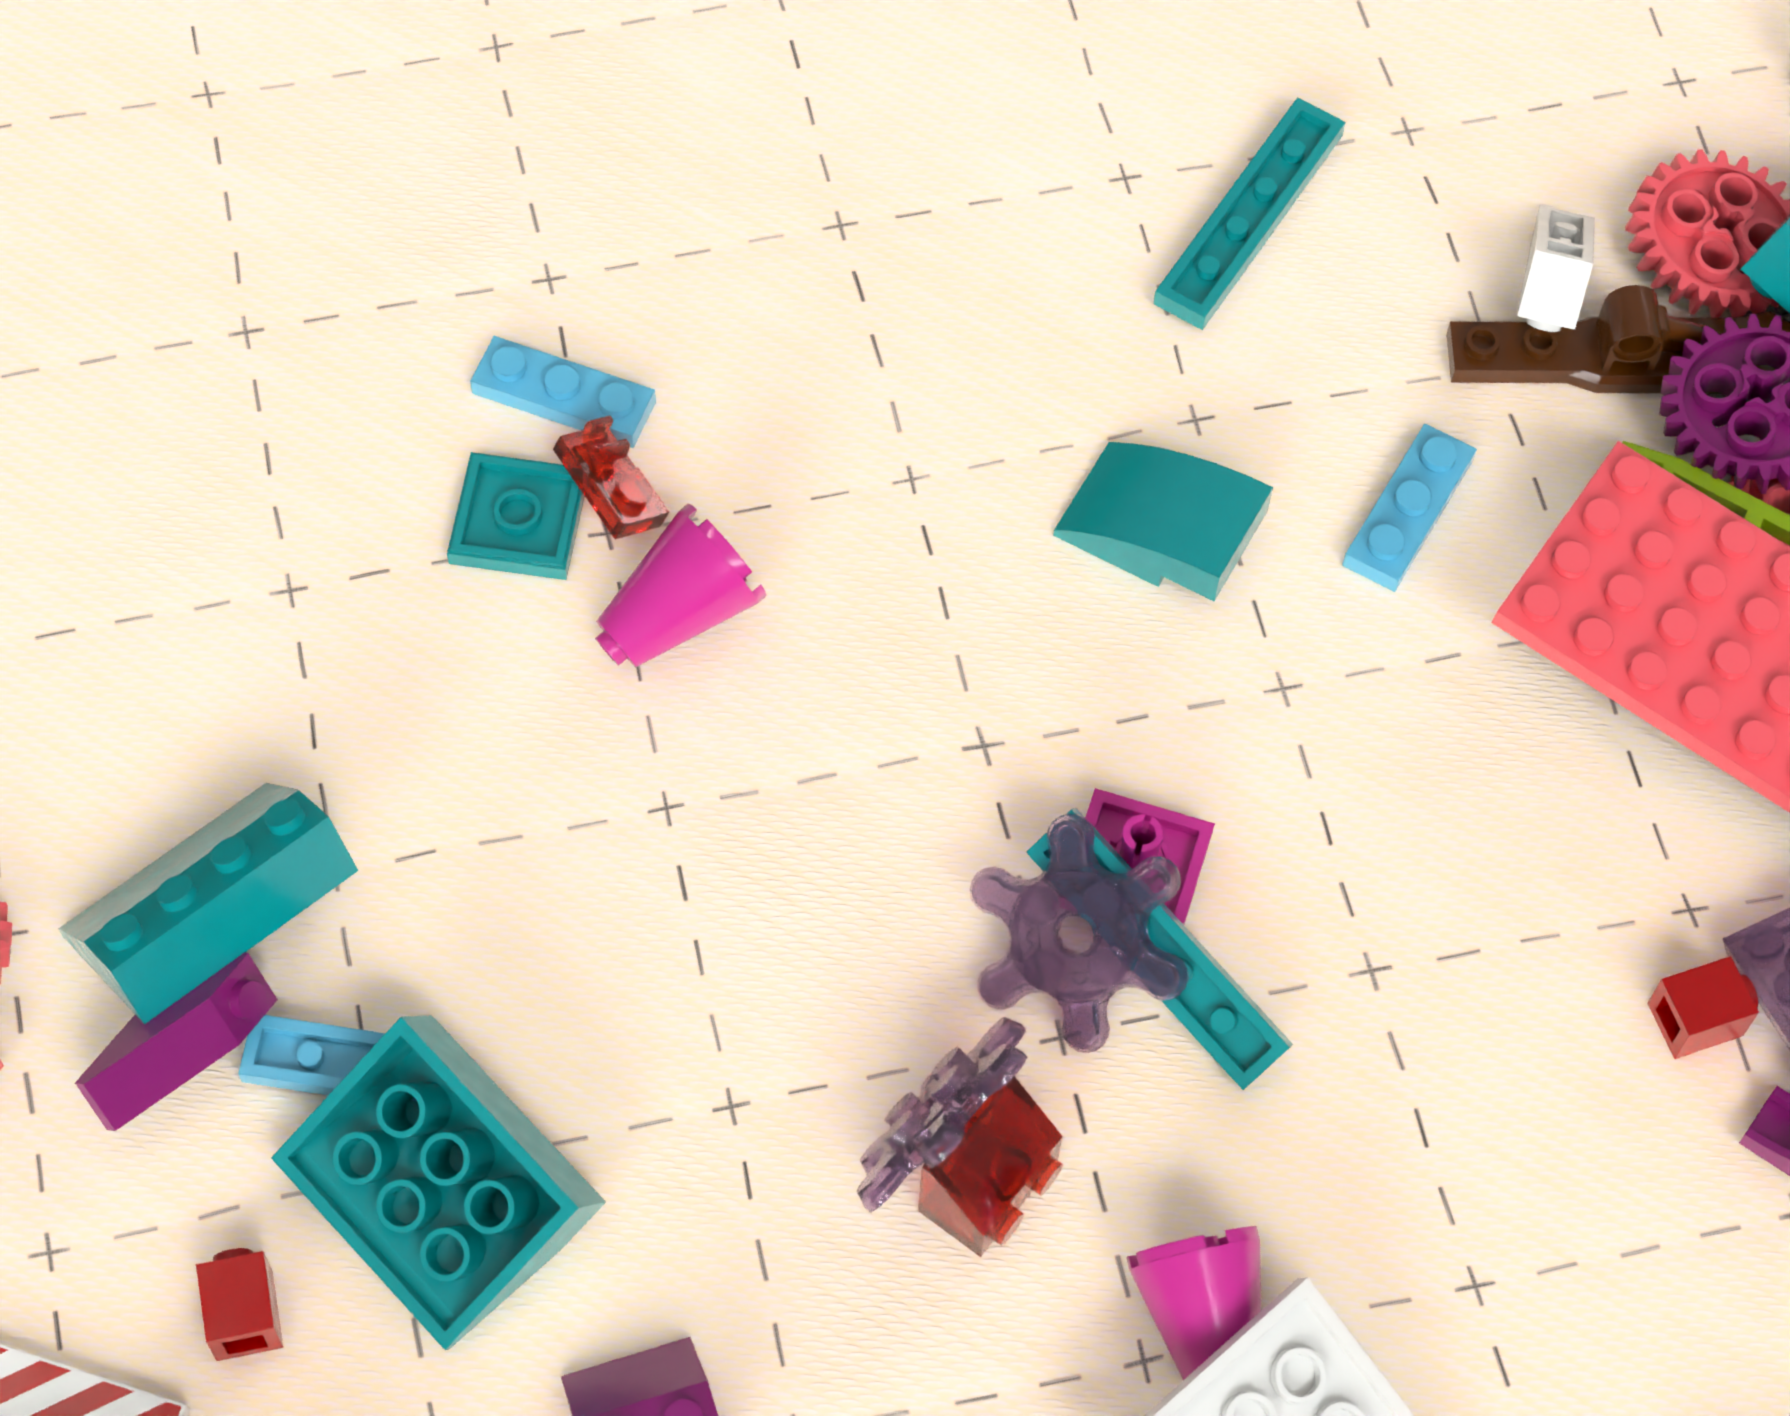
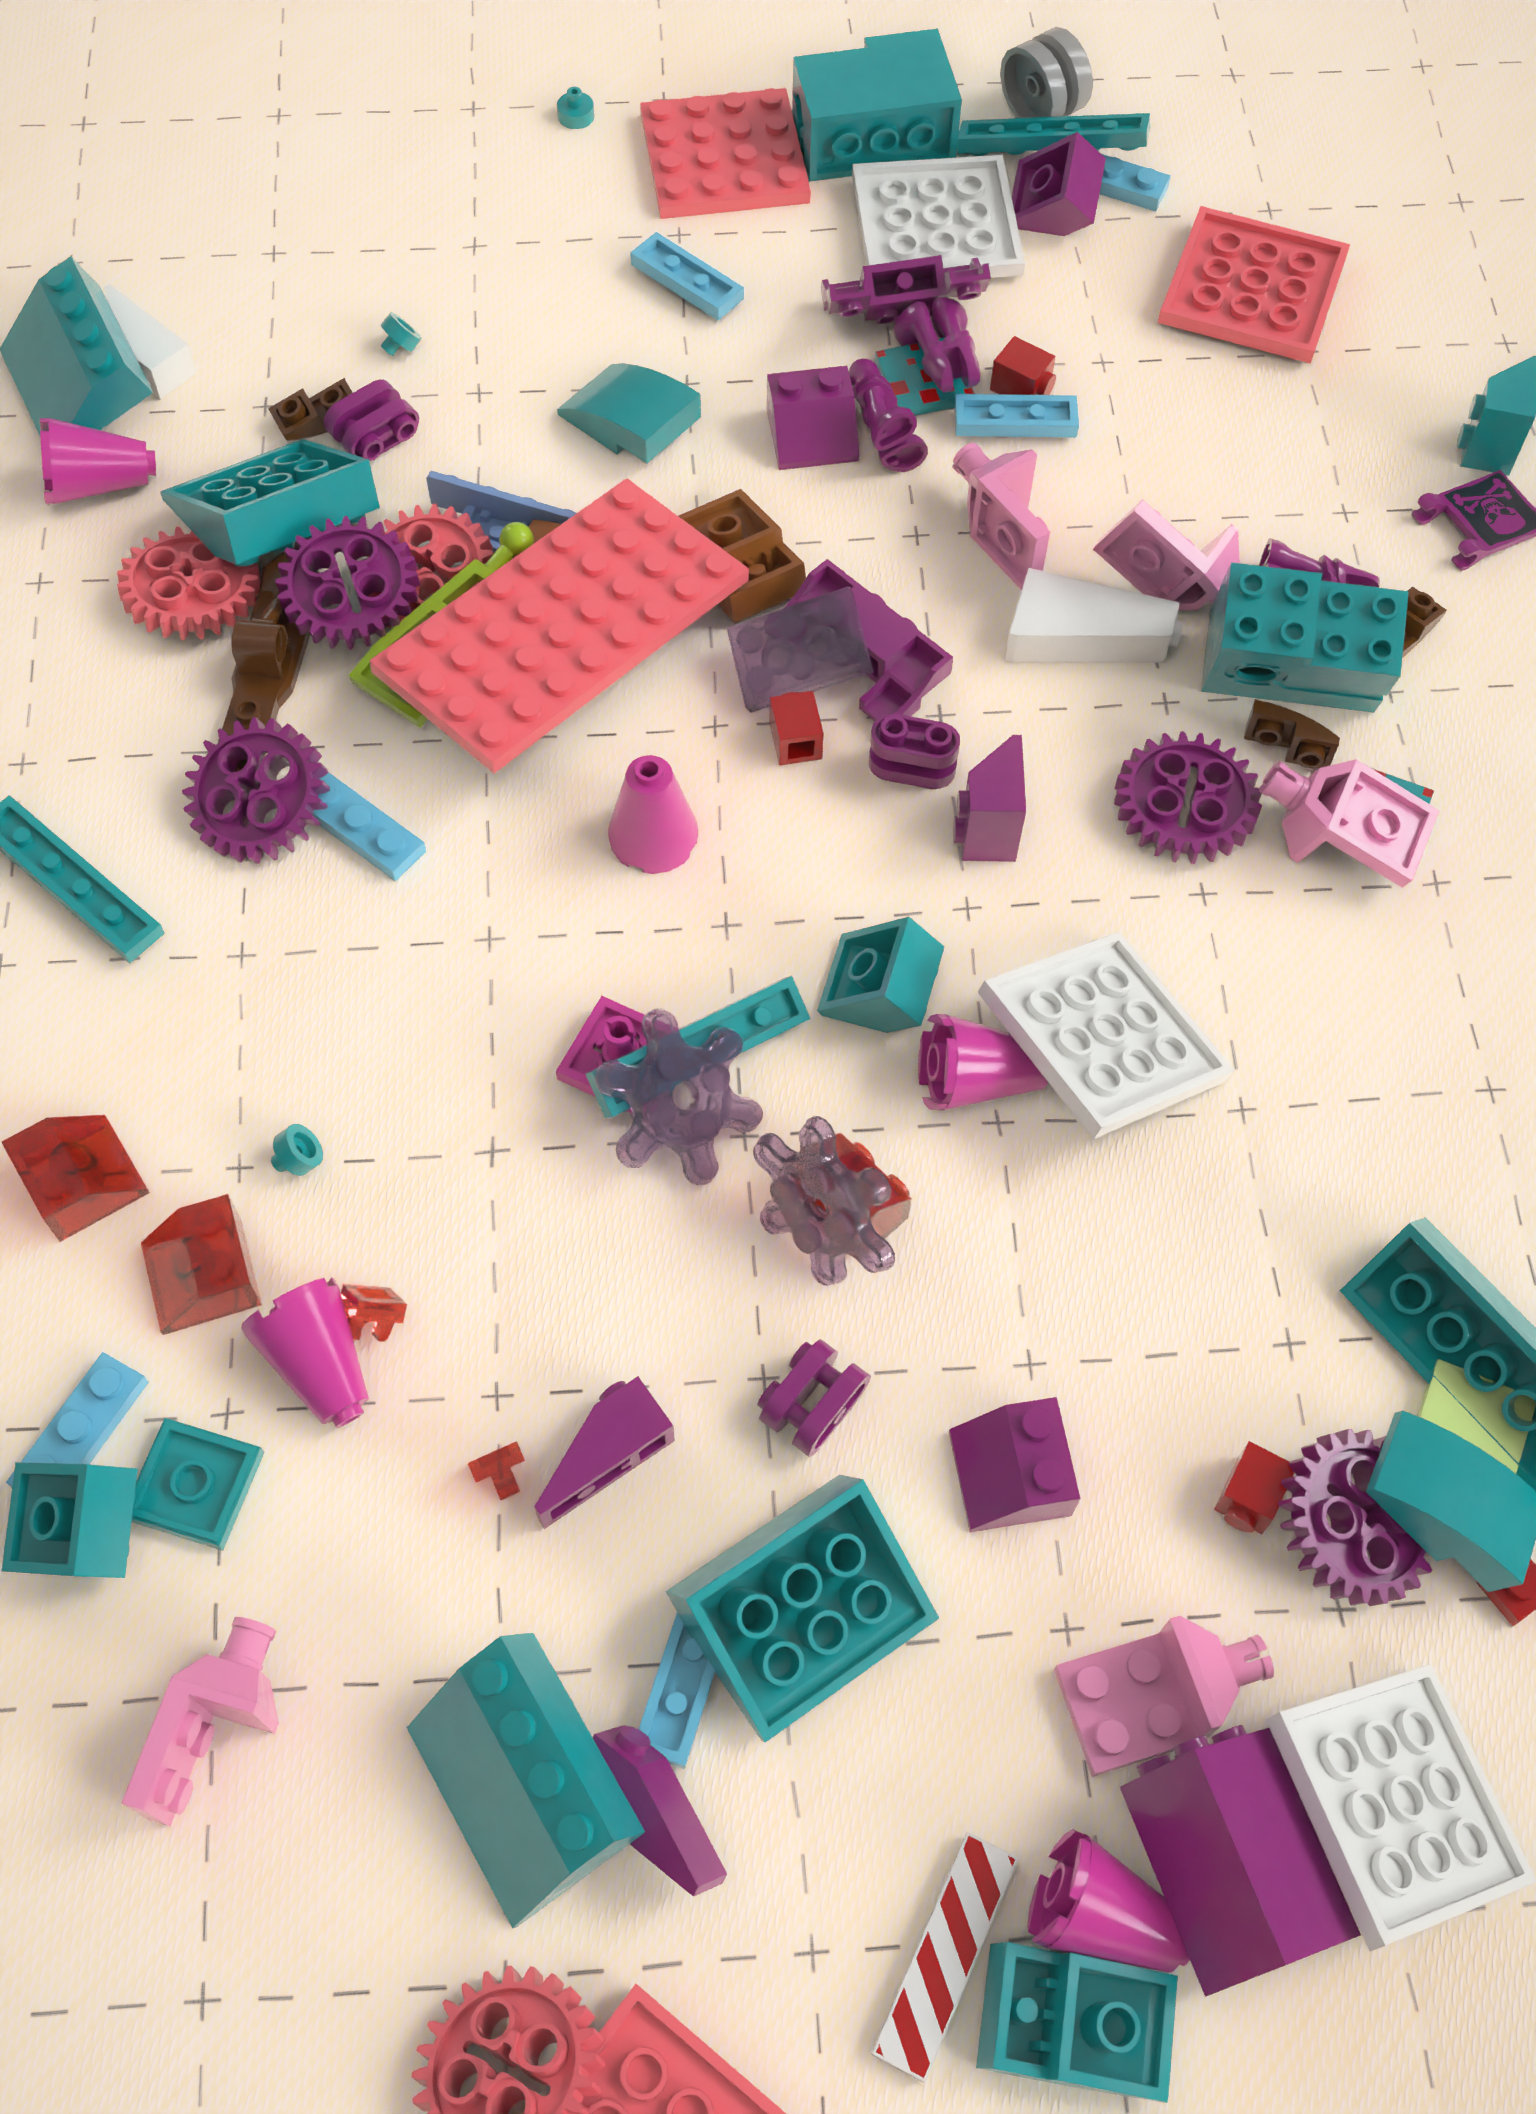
camera: 80 degrees left, 0 degrees up
(239, 1304) = (888, 1778): red brick -> none
(242, 558) = (182, 1731): none -> bright pink plate
(450, 402) = (70, 1520): none -> teal slope
(565, 817) = (497, 1467): none -> clear red tile
(608, 928) = (613, 1440): none -> magenta slope
(610, 479) = (184, 1397): clear red plate -> none
(694, 1125) = (784, 1401): none -> magenta brick
(745, 643) = (374, 1305): none -> clear red tile
(774, 466) = (200, 1265): none -> clear red slope
(866, 308) = (74, 1171): none -> clear red slope
(935, 527) = (296, 1150): none -> teal tile
(1165, 516) = (329, 984): teal slope -> none
(1323, 1174) = (882, 976): none -> teal slope
(1419, 374) = (256, 790): none -> magenta gear
(1495, 843) = (652, 818): none -> dark pink cone
(1557, 269) = (191, 680): white slope -> none
(1633, 1283) = (993, 806): none -> magenta slope
(1705, 1170) = (914, 751): none -> magenta brick

